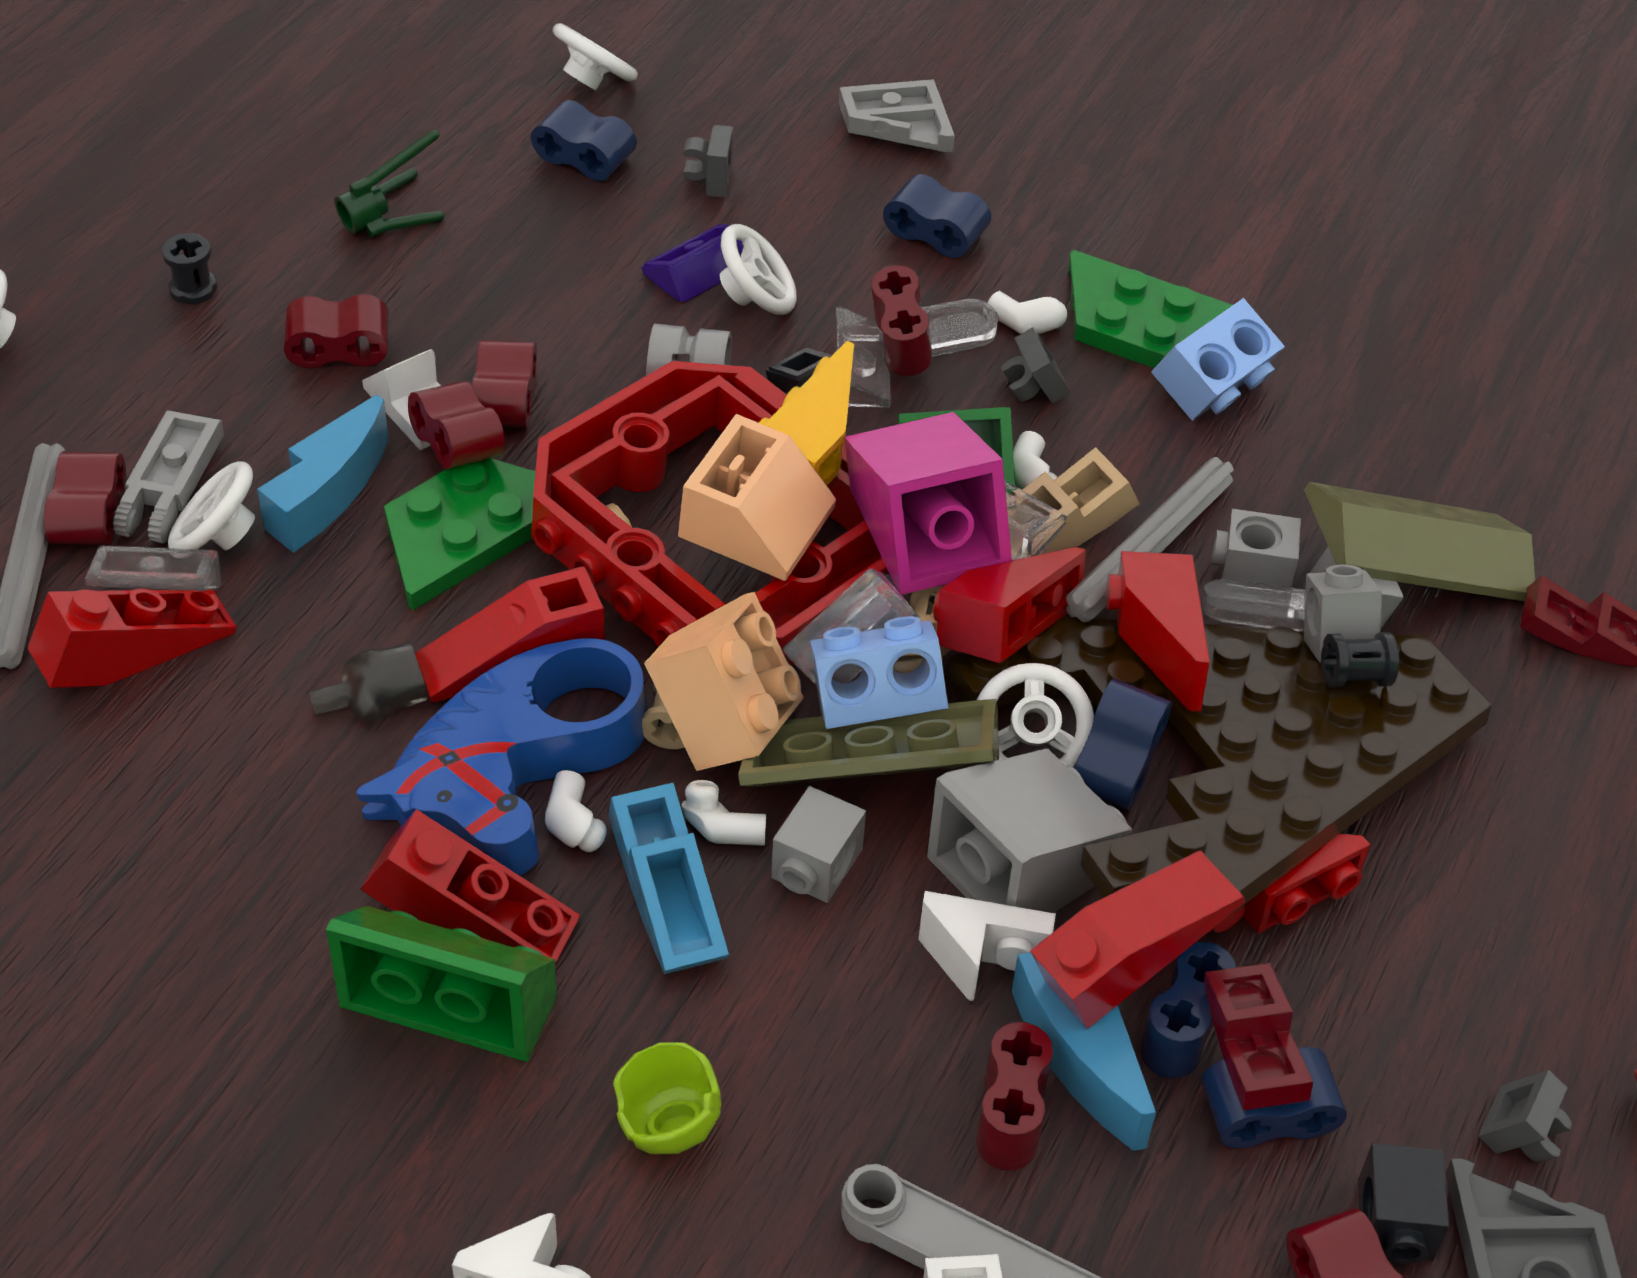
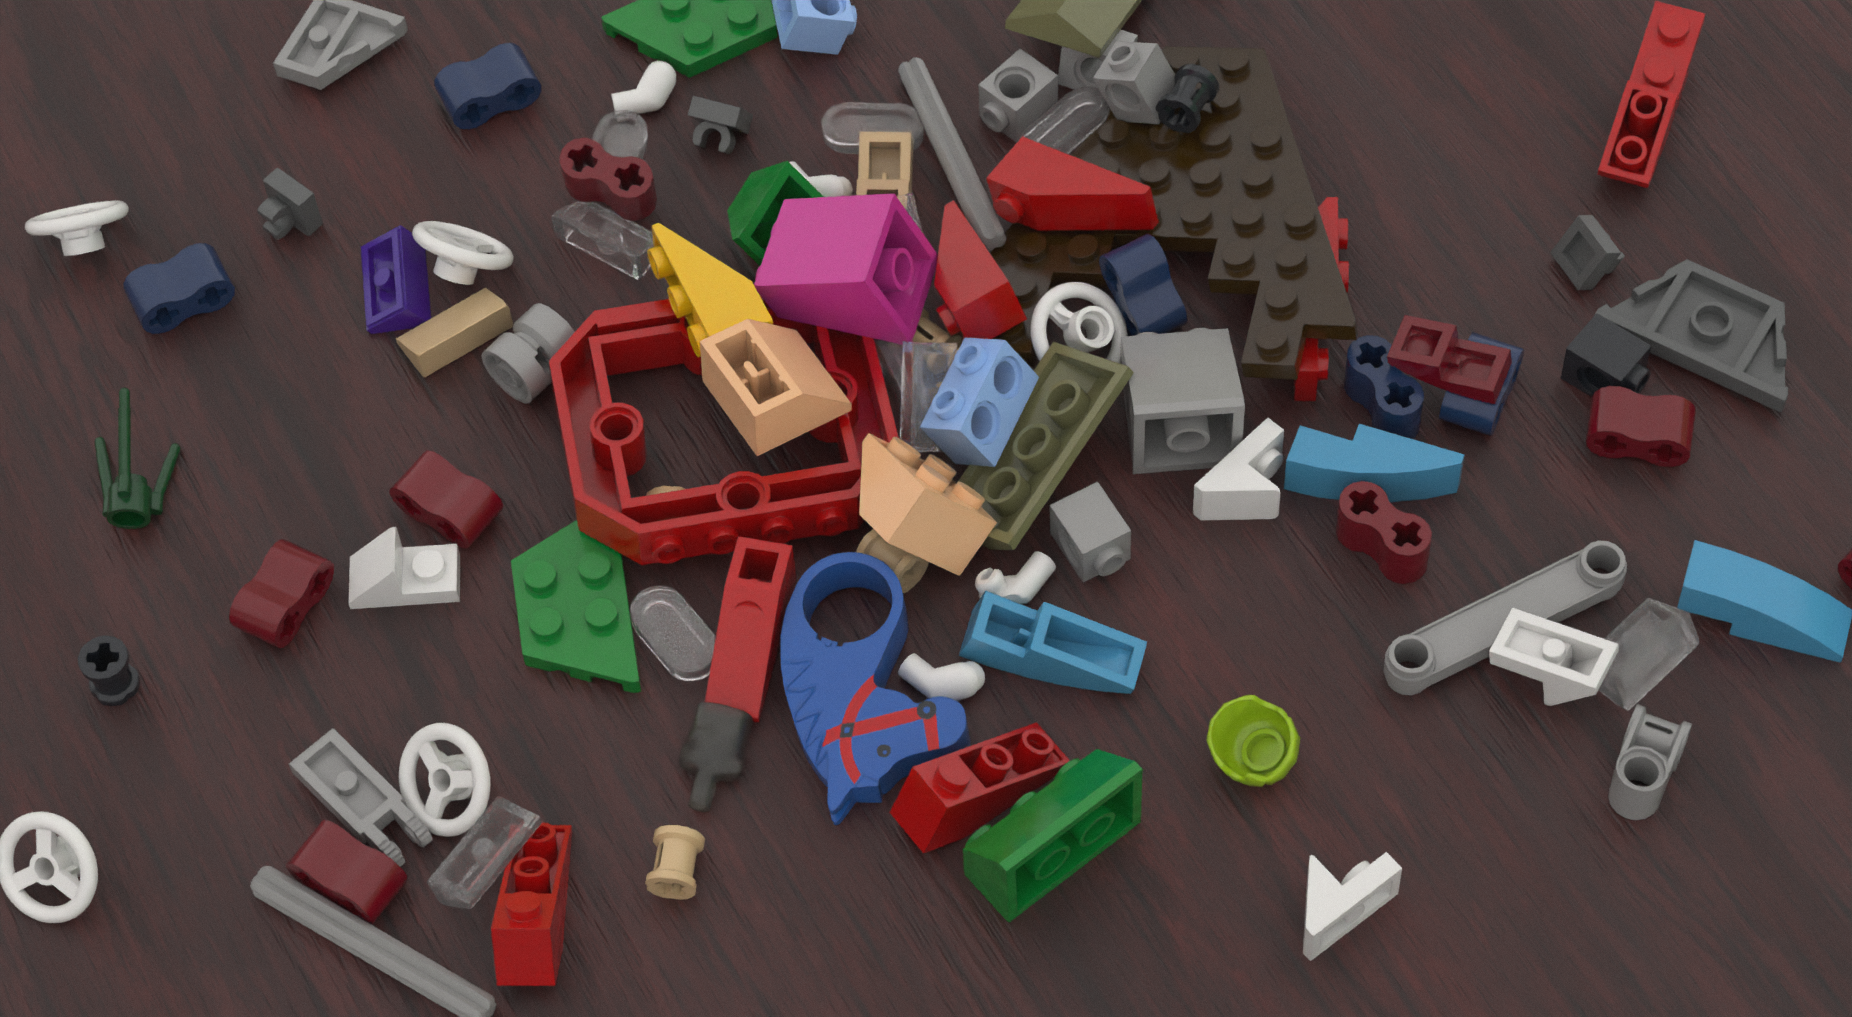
camera: 50 degrees left, 10 degrees up
(233, 709) = (675, 862): none -> tan bush
(324, 475) = (457, 677): dark azure slope -> none
(456, 424) = (489, 553): dark red axle -> none
(481, 584) = (673, 632): none -> clear tile
(651, 305) = (456, 331): none -> tan slope
(794, 369) = (607, 279): black slope -> none
(1133, 935) = (1346, 375): red slope -> none
(1146, 476) = (846, 119): none -> clear tile

